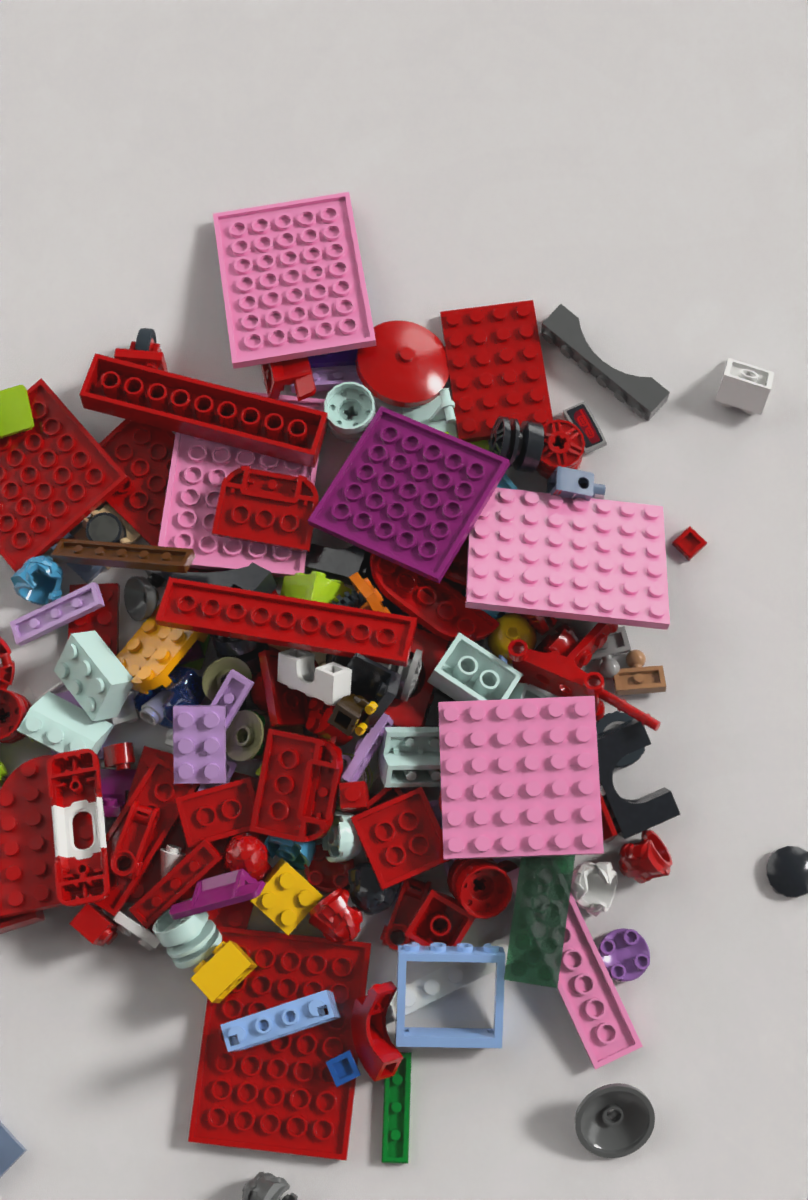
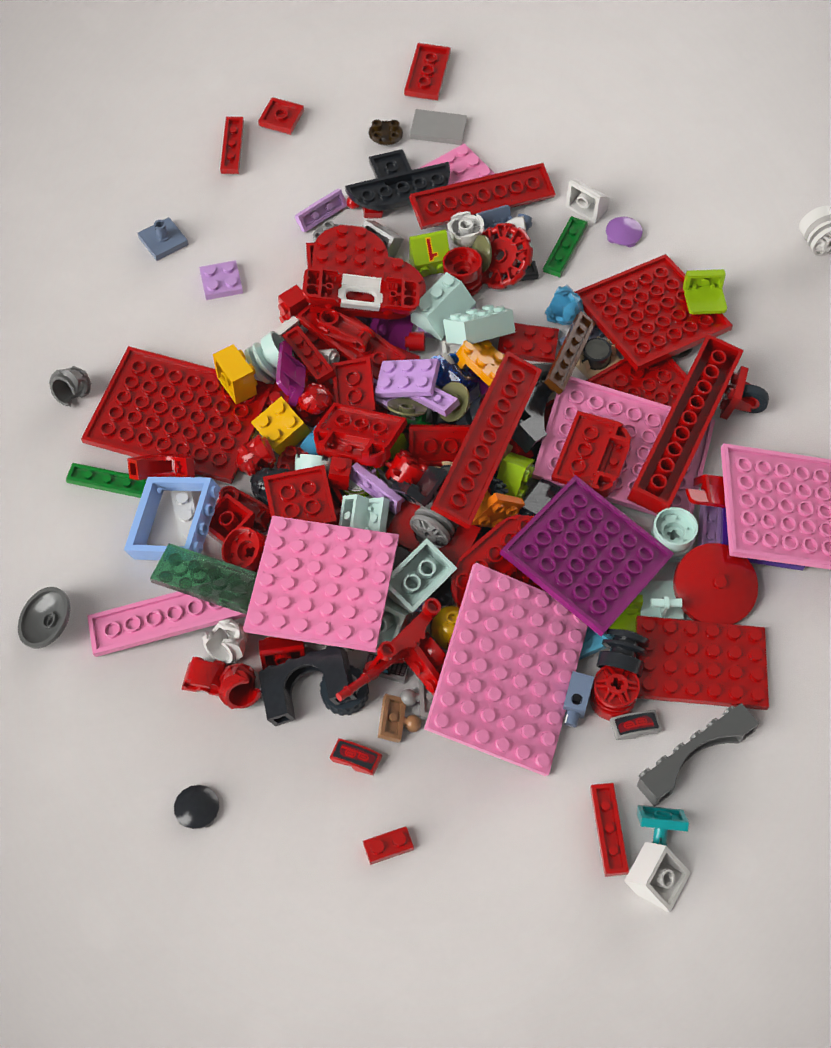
camera: 95 degrees right, 15 degrees down
(50, 1045) = (221, 280): none -> lavender plate
(57, 614) = (535, 315): lavender plate -> none
(280, 1021) = (186, 394): light blue window -> none
(324, 682) = (435, 453): white arch -> none
(343, 1068) = (144, 443): blue plate -> none
(348, 713) = (402, 466): dark brown piece -> none
(624, 954) = (168, 658): medium lavender dish -> none
(639, 905) = (203, 676): none -> red cylinder
(689, 385) = (662, 820): none -> teal tile
(689, 543) = (510, 792): red tile -> none
(692, 710) = (357, 756): none -> slope
(706, 438) = (609, 829): none -> red plate
(779, 656) = (388, 845): none -> red plate

